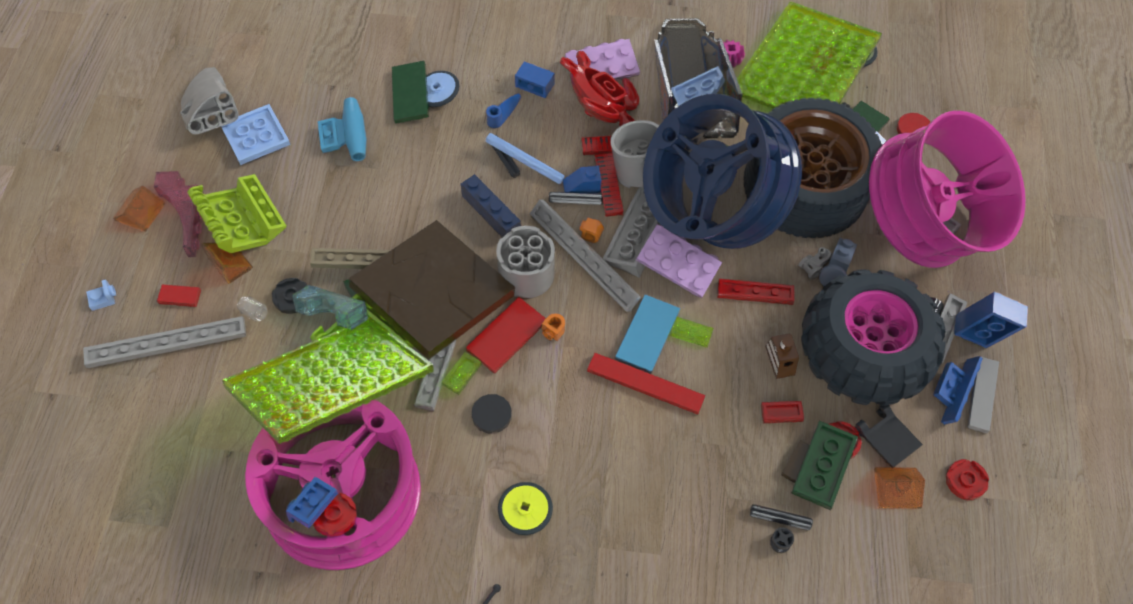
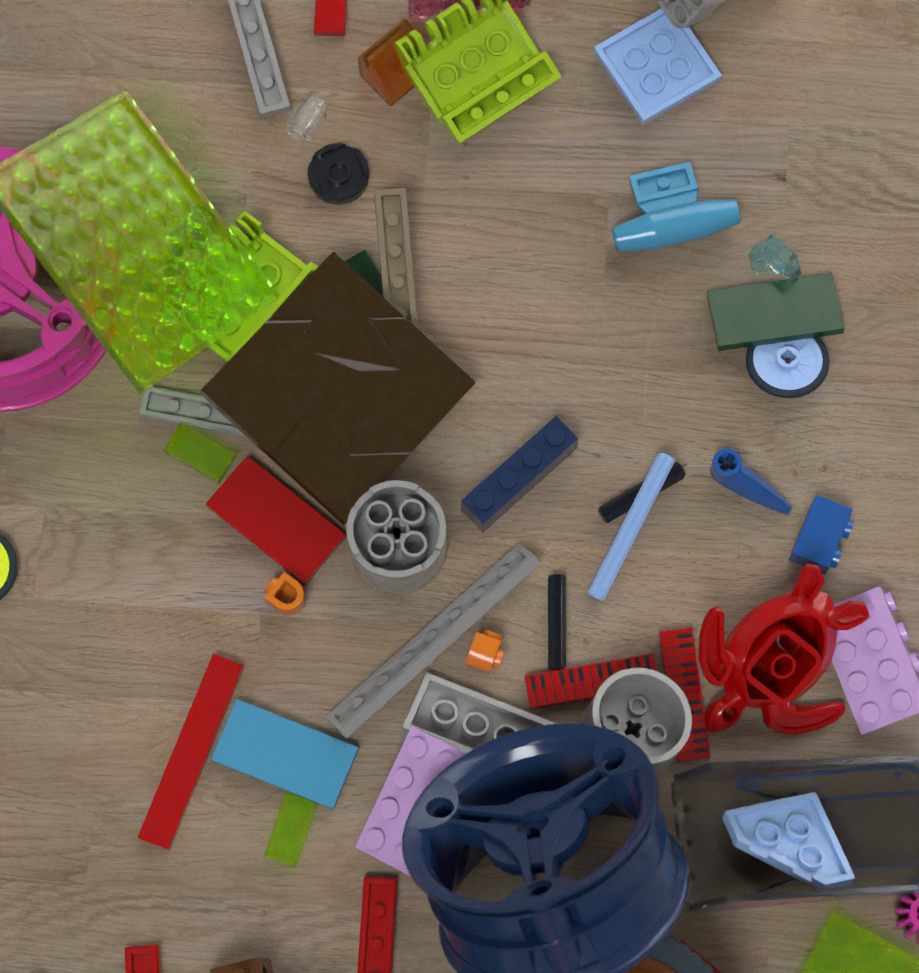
camera: 90 degrees right, 15 degrees up
(347, 310) = (281, 257): clear light blue arch -> none
(380, 85) = (776, 255): none -> clear light blue bracket
(491, 413) = (132, 506): black tile -> none
(583, 181) = (588, 632): blue slope -> none

